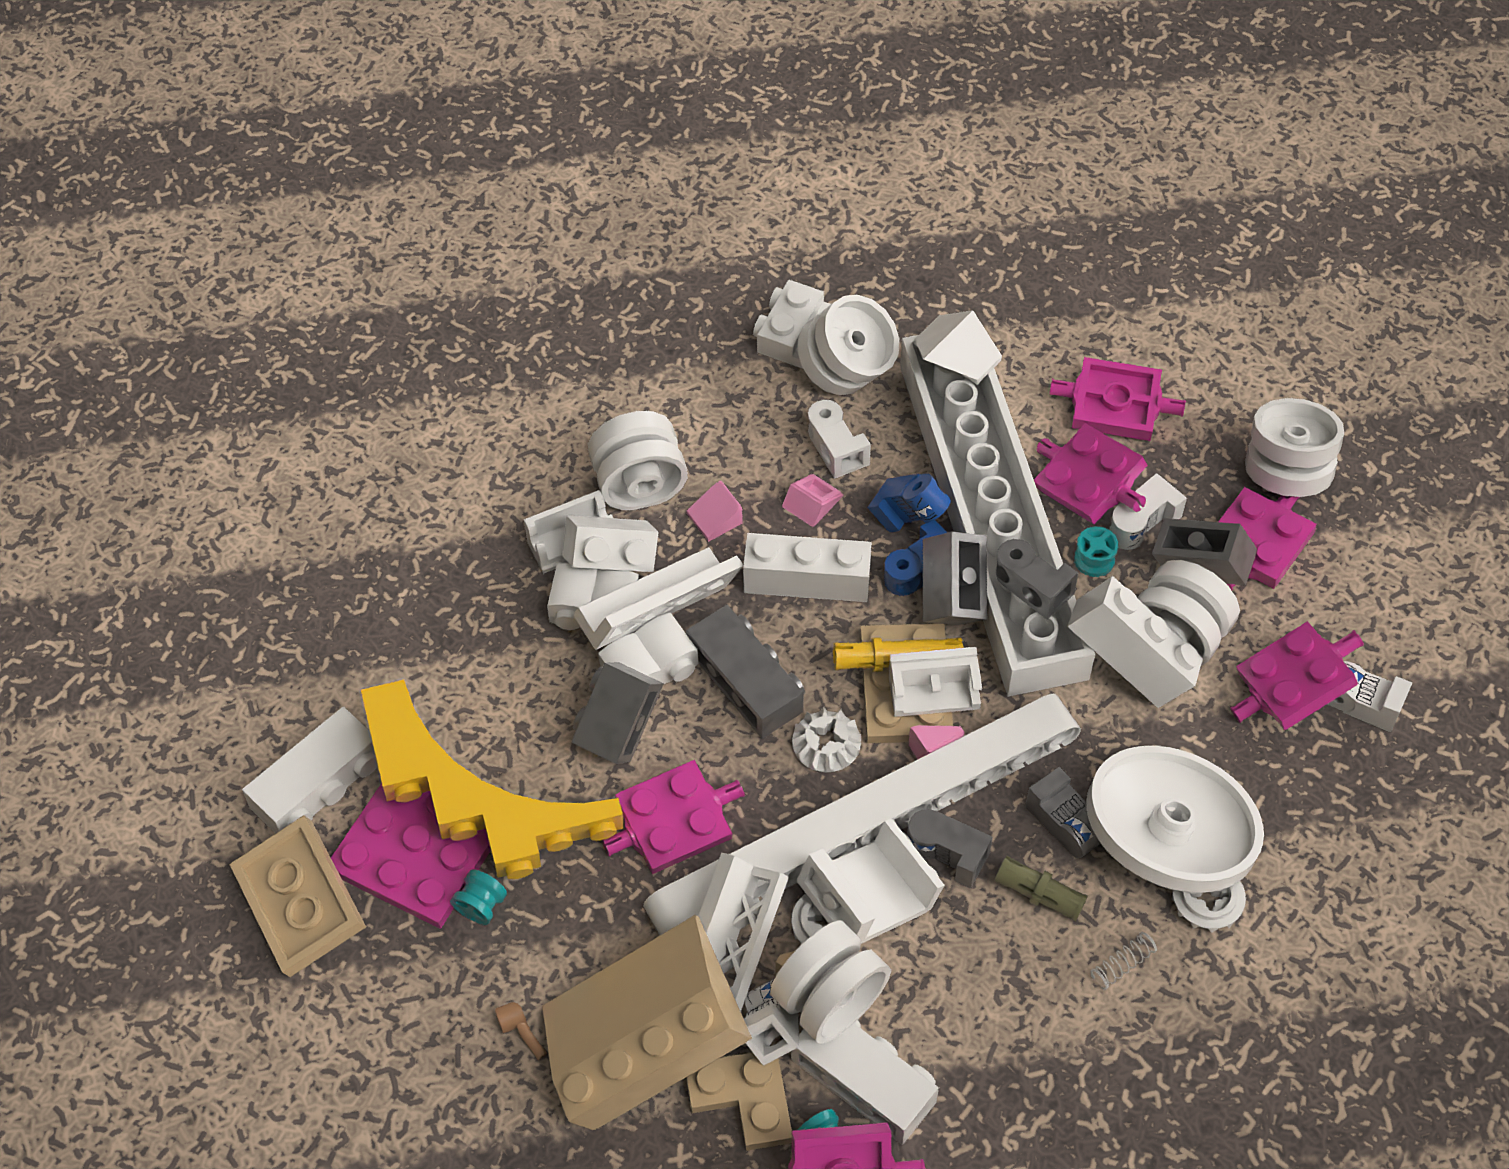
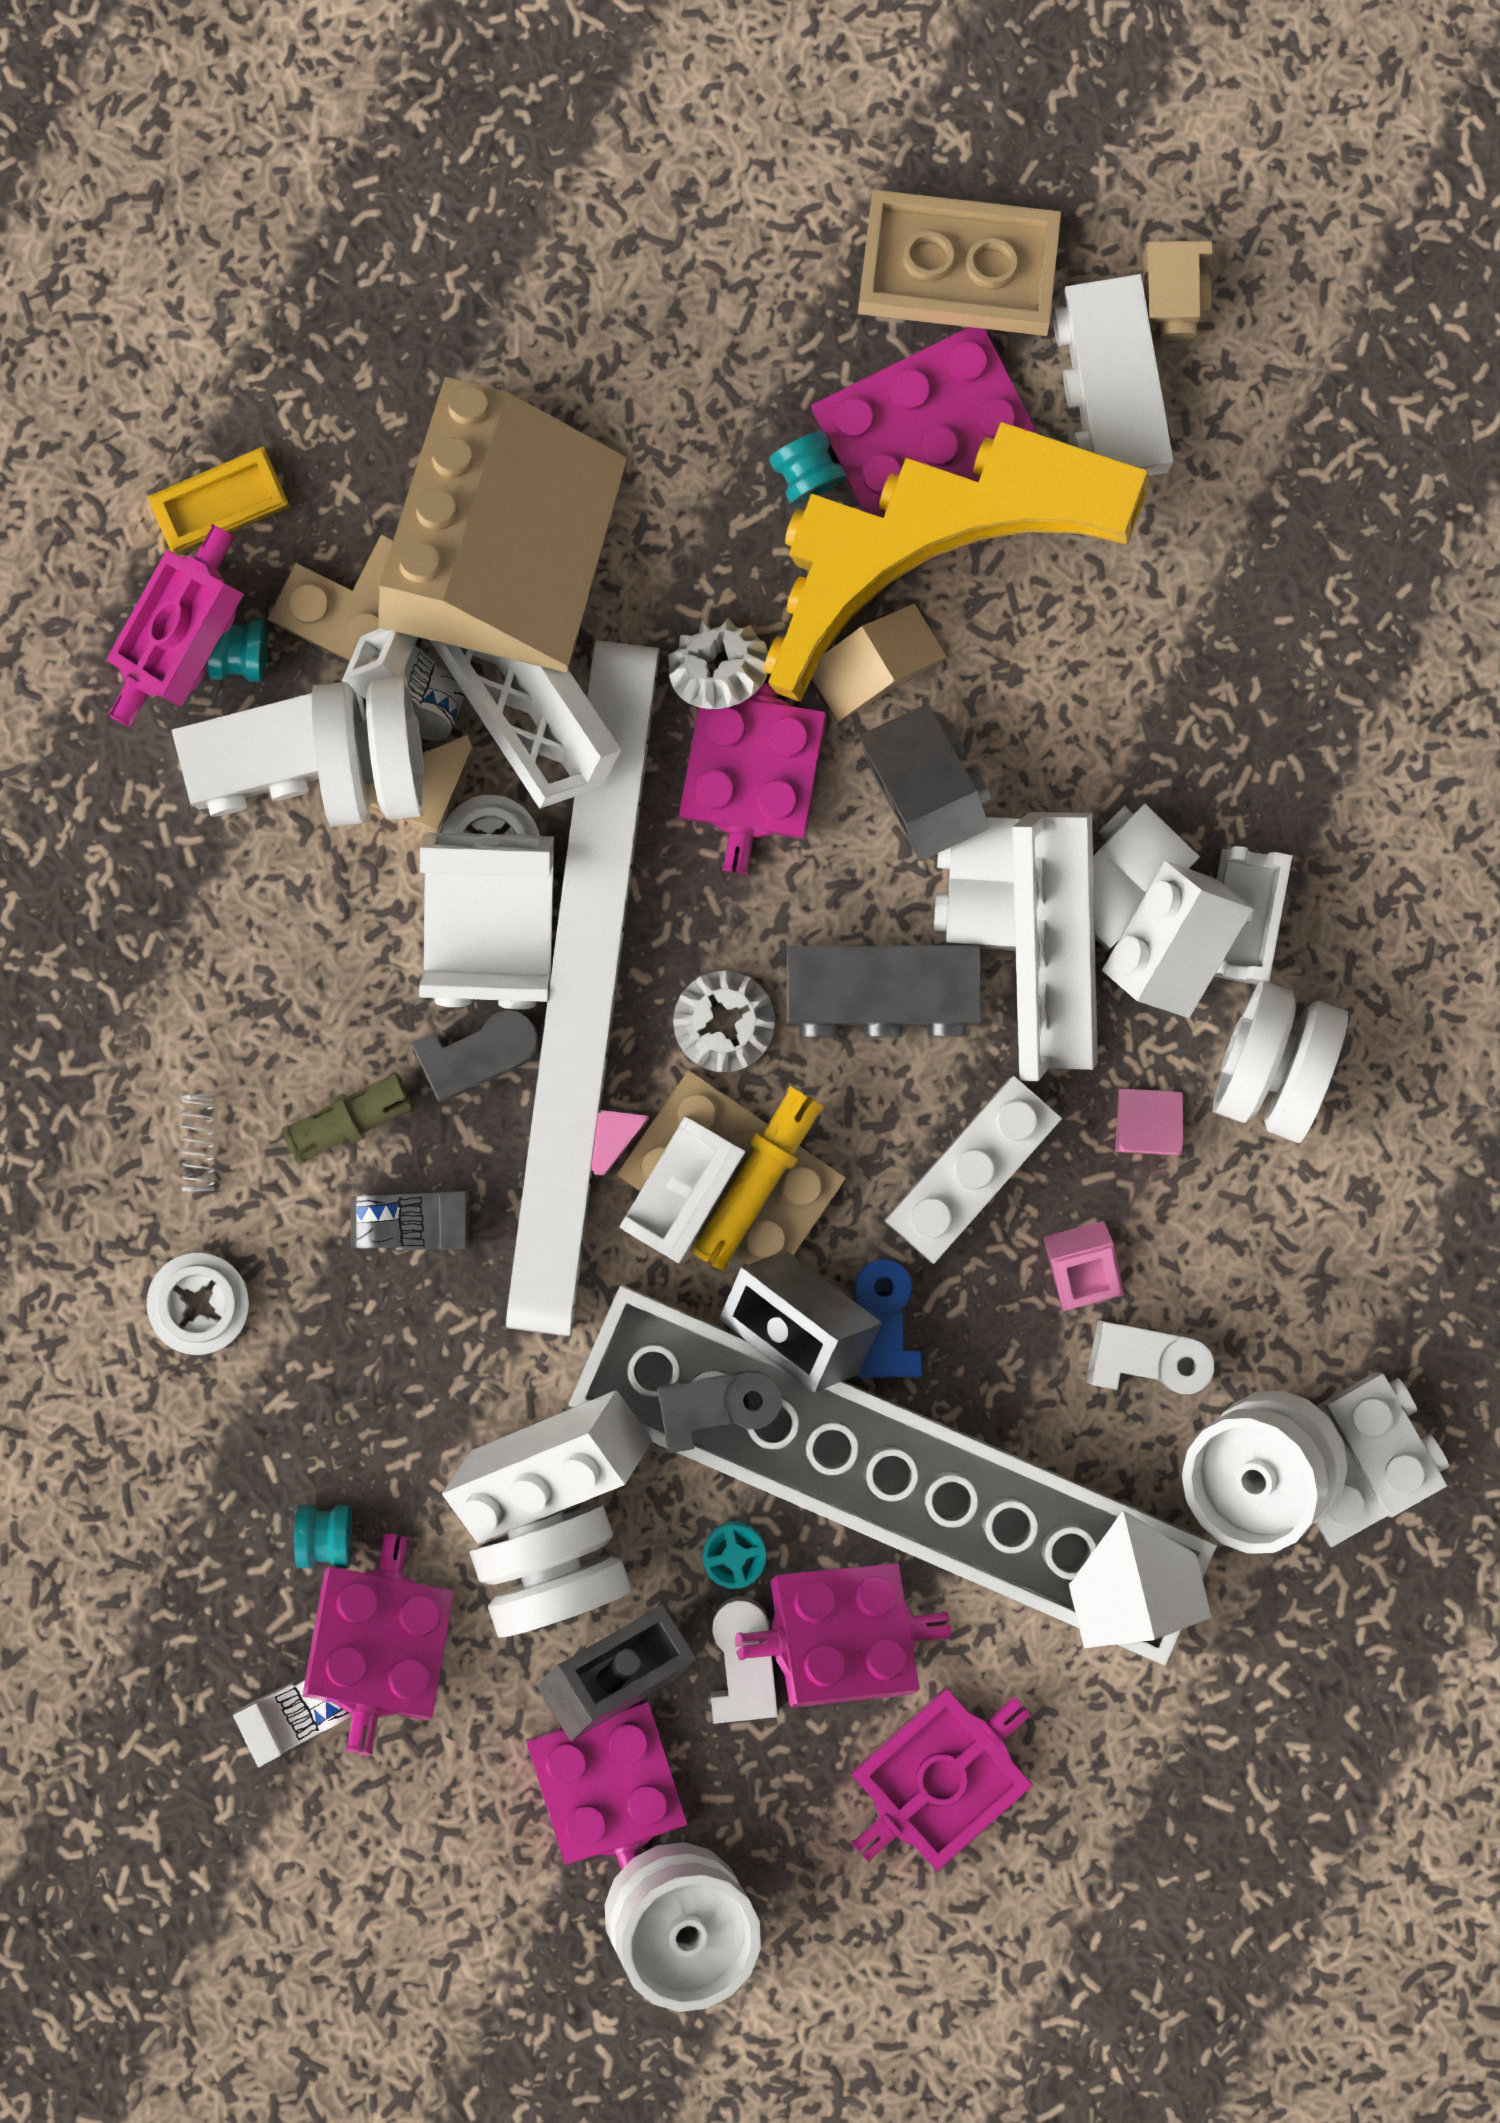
camera: 130 degrees right, 30 degrees up
(232, 774) = (1175, 287): none -> tan brick
(511, 1017) = (635, 414): medium nougat hand -> none
(565, 783) = (876, 661): none -> tan slope
(647, 874) = (733, 680): none -> white gear
(908, 500) = (982, 1362): blue leg -> none
(1174, 819) = (305, 1332): white dish -> none
(1268, 743) = (323, 1536): none -> teal wheel

